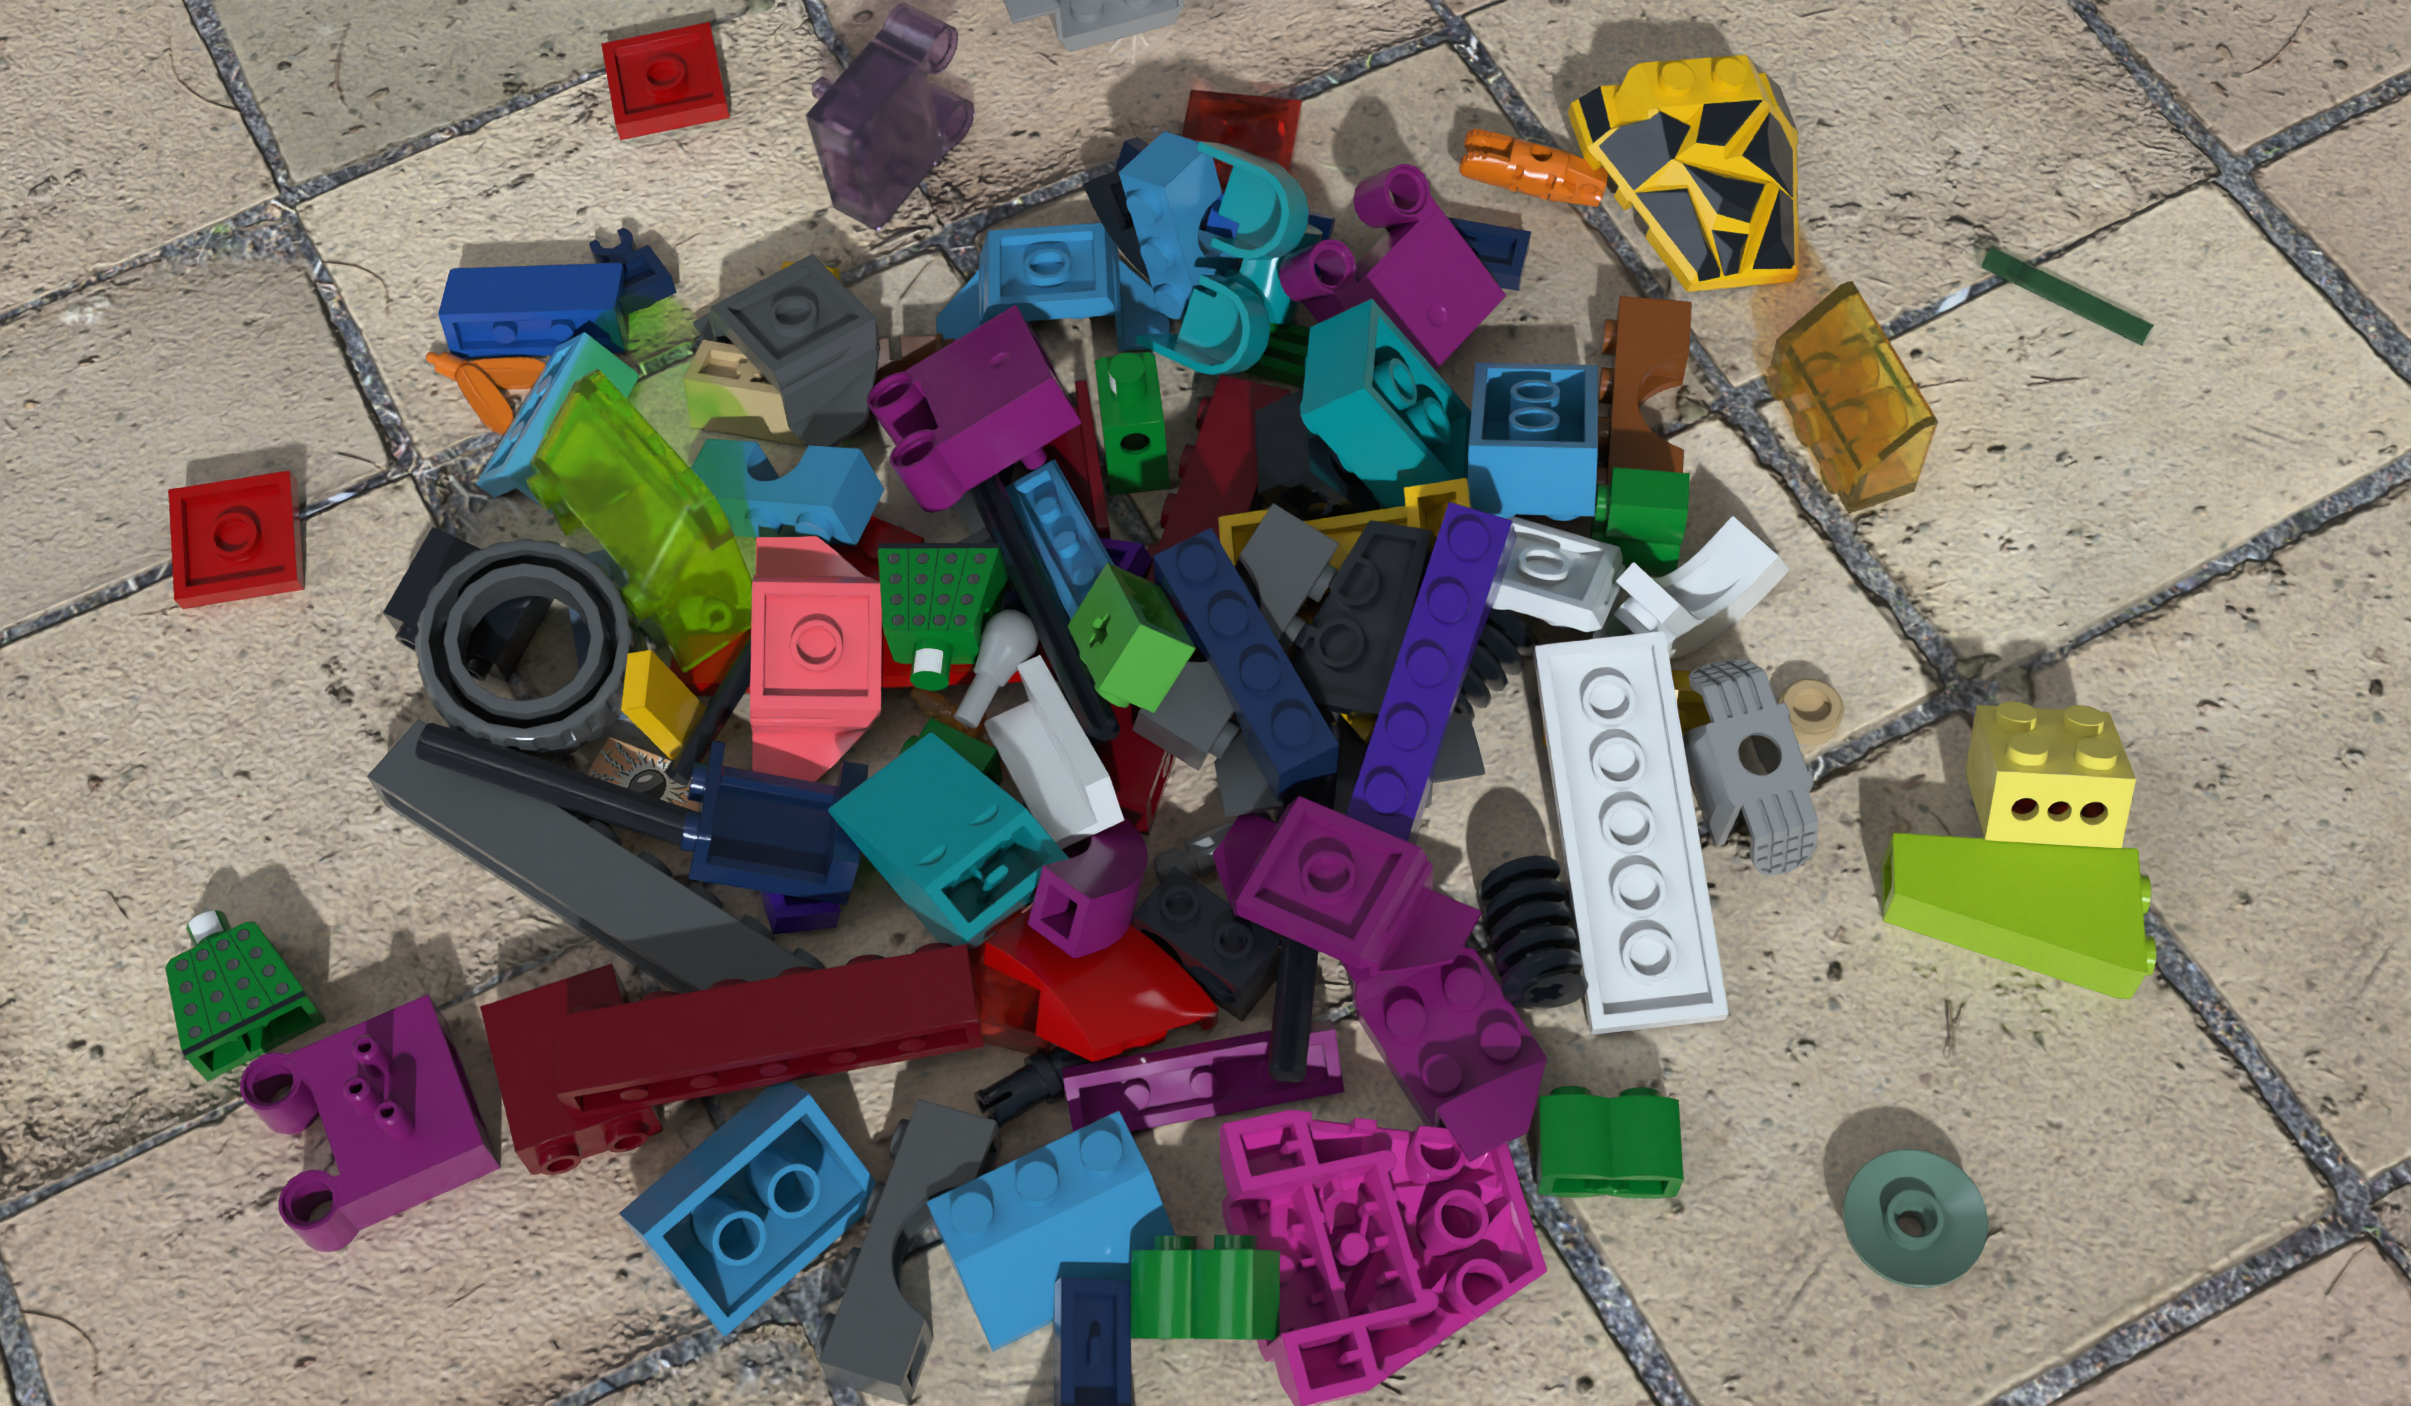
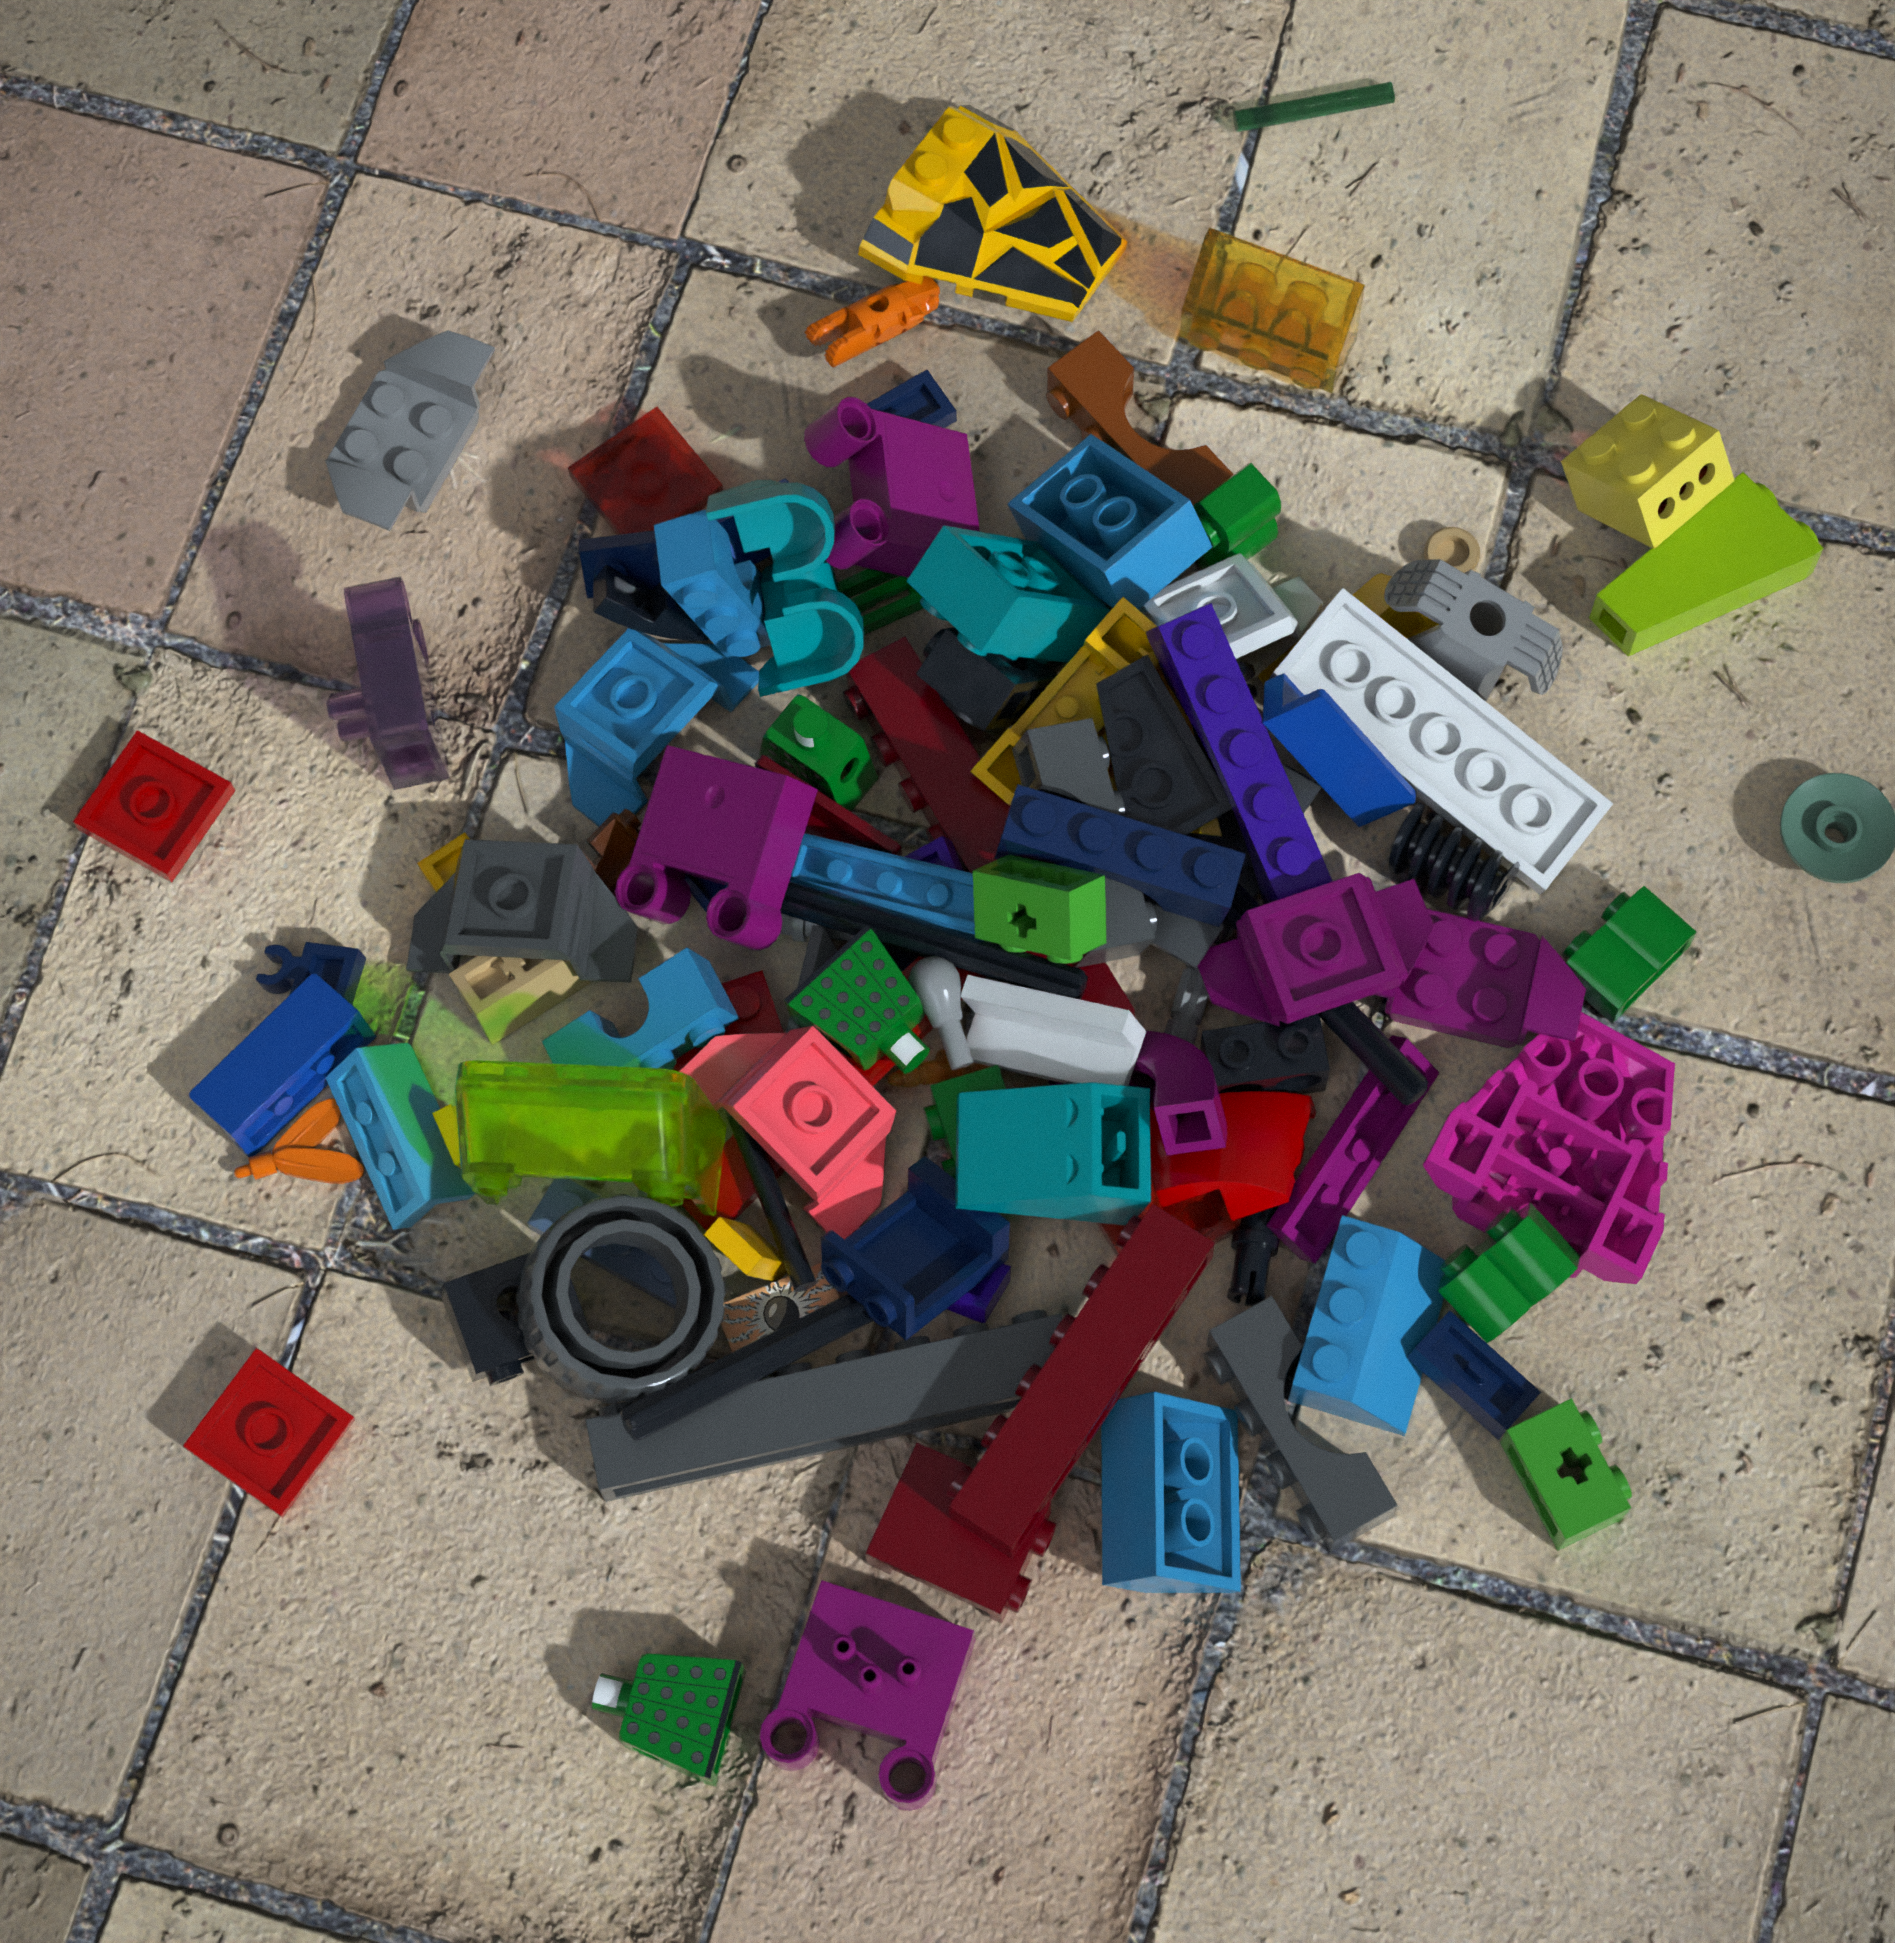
camera: 45 degrees left, 10 degrees up
(1513, 746) = (1334, 751): none -> blue panel
(1704, 593) = (1315, 535): white arch -> none

